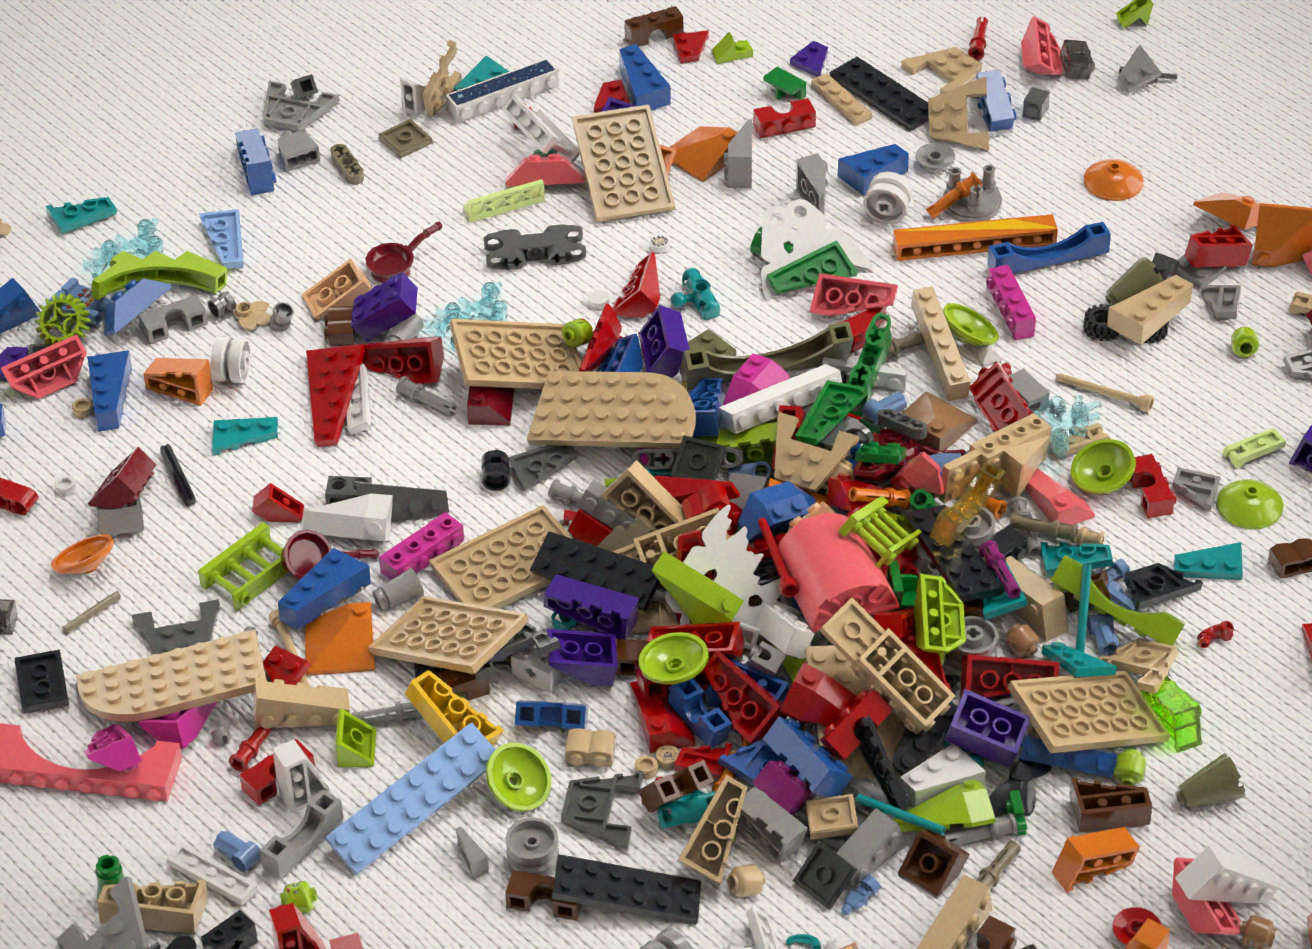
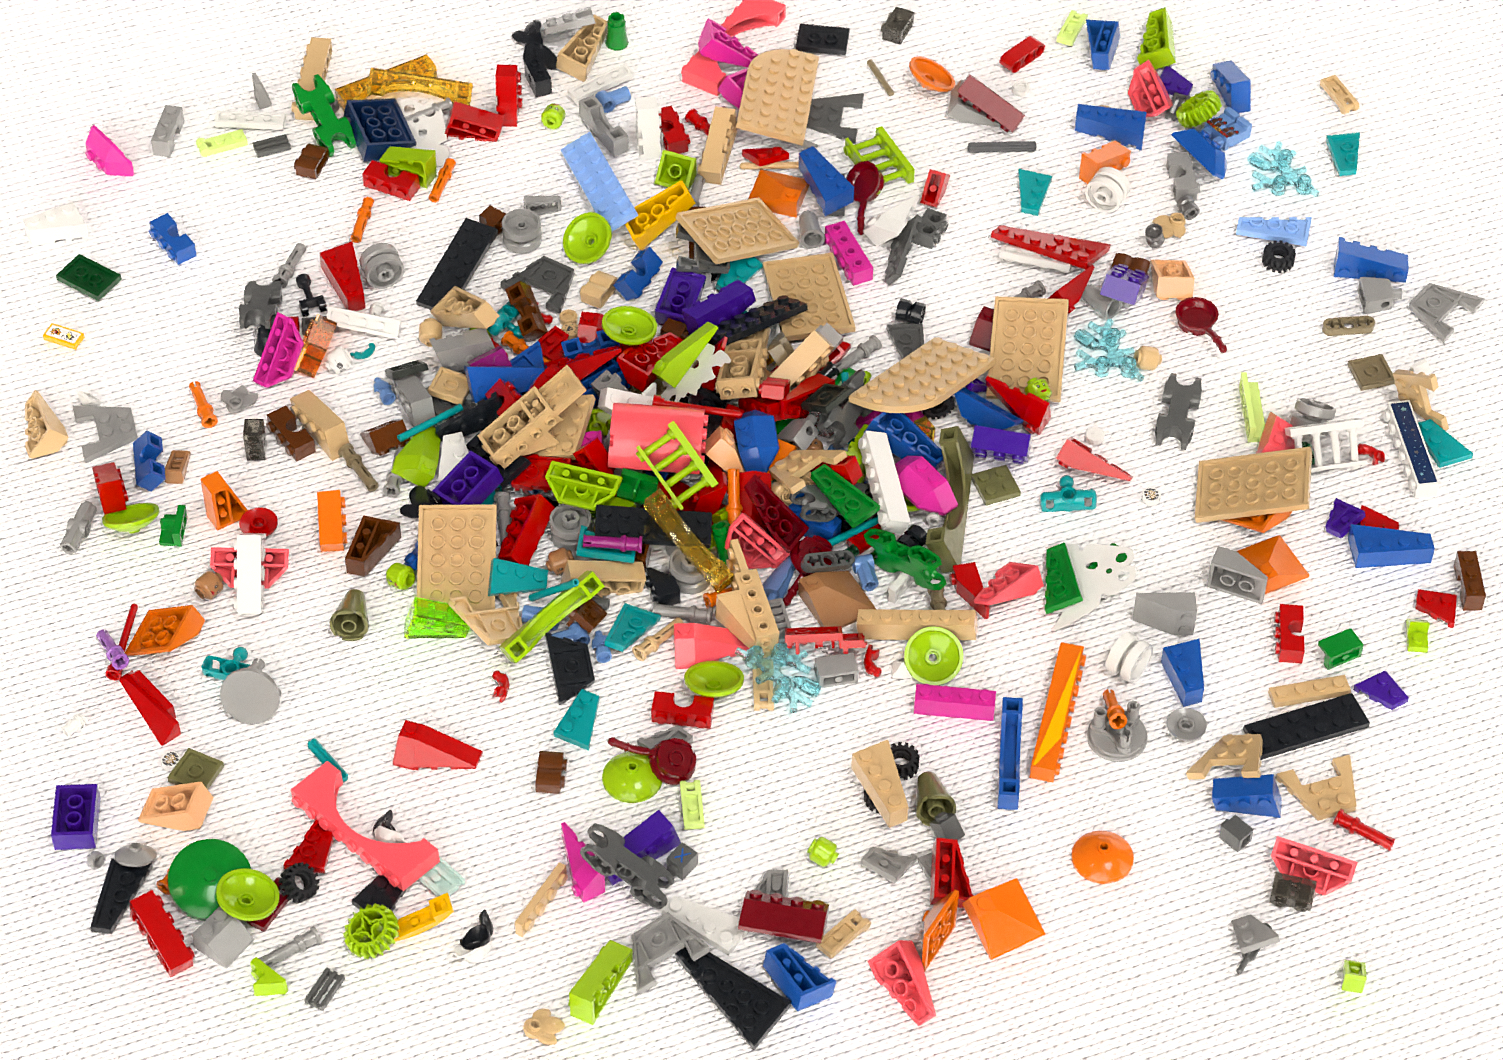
camera: 110 degrees right, 5 degrees up
(184, 270) = (1242, 155): lime arch -> none
(268, 226) = (1279, 249): none -> black tyre
(304, 87) = (1461, 315): dark grey brick -> none
(470, 282) = (1147, 358): none -> tan head
(506, 145) = (1312, 412): none -> light grey wheel
(881, 454) = (788, 524): green plate -> none
(1015, 806) = (400, 493): green plate -> none
(1054, 529) = (659, 617): dark tan pin -> none
(1144, 402) = (786, 749): tan piece -> none
(1221, 469) = (669, 759): none -> dark red piece

